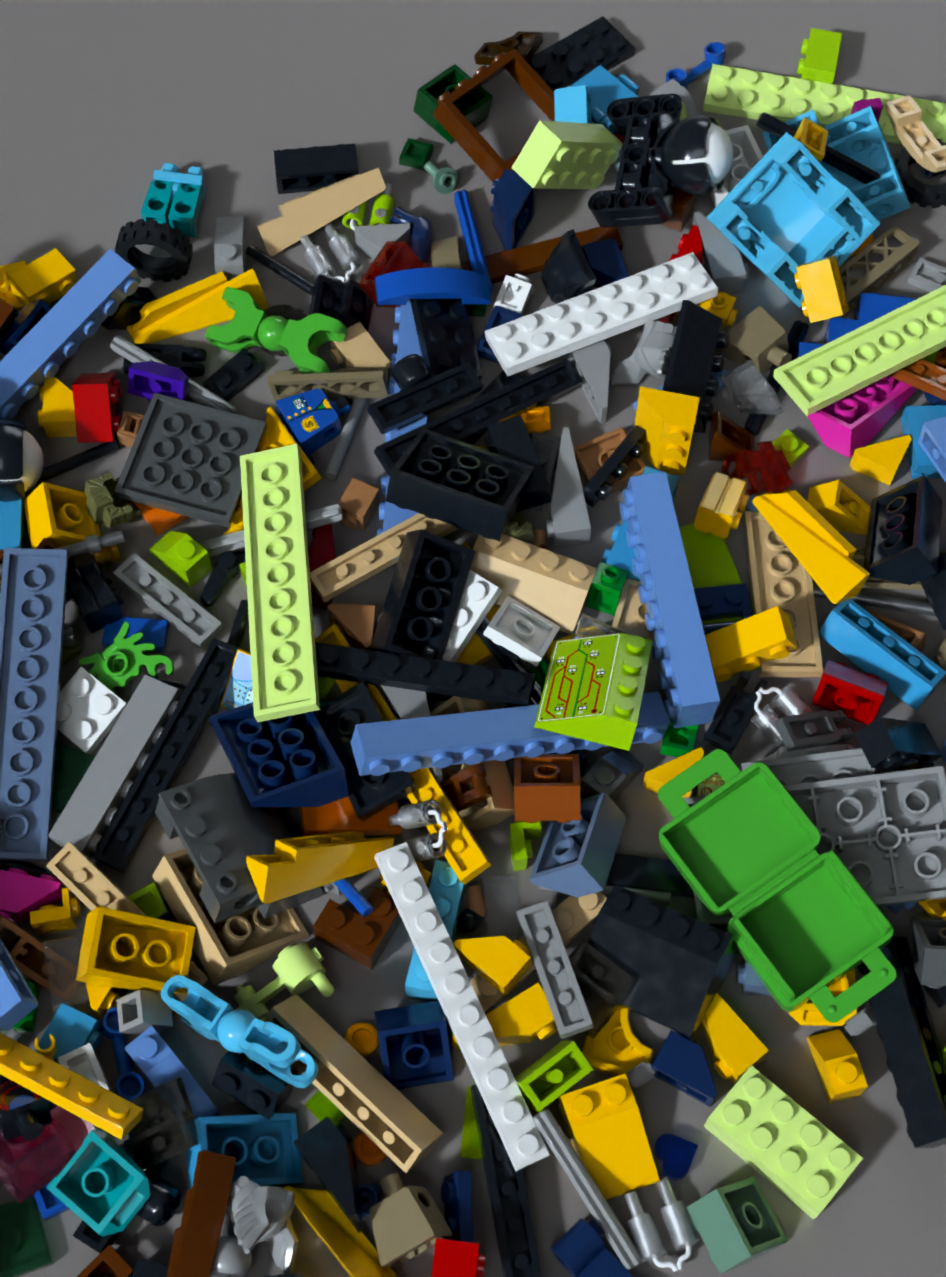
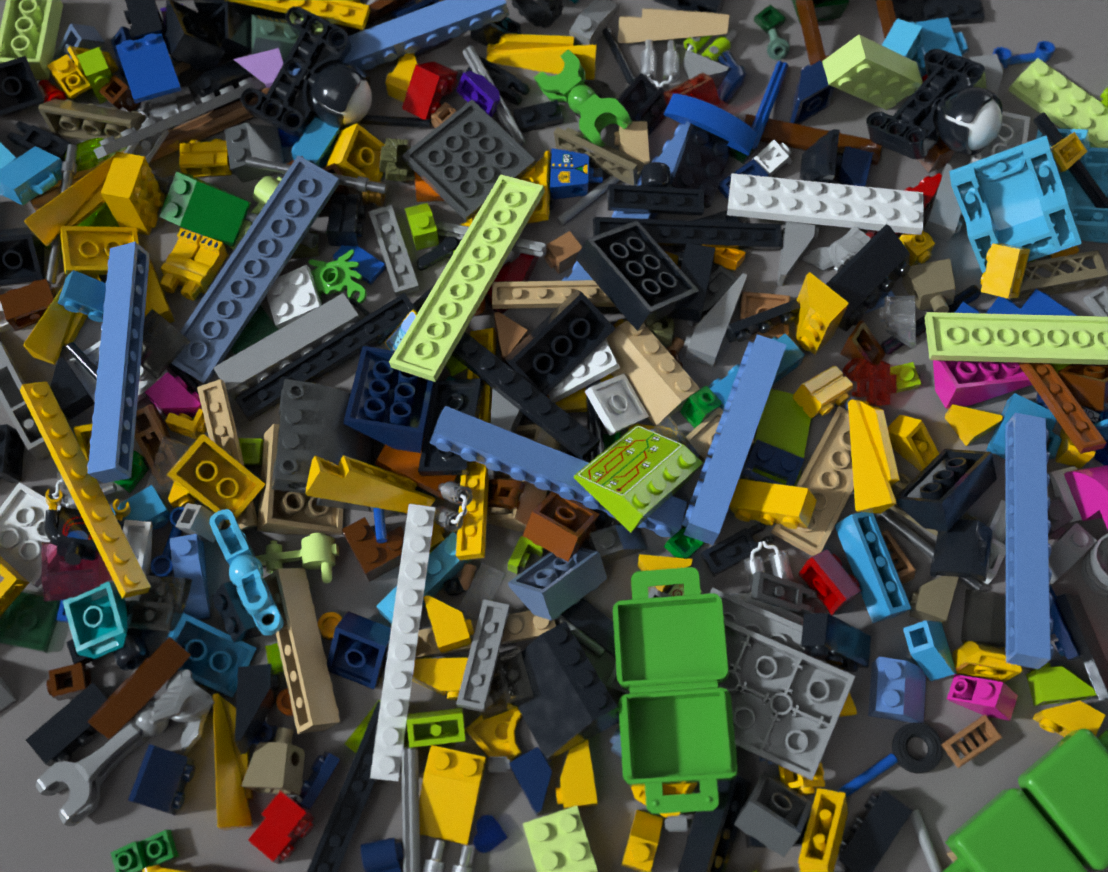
camera: 30 degrees right, 5 degrees up
(446, 253) = (741, 104): dark tan slope -> none

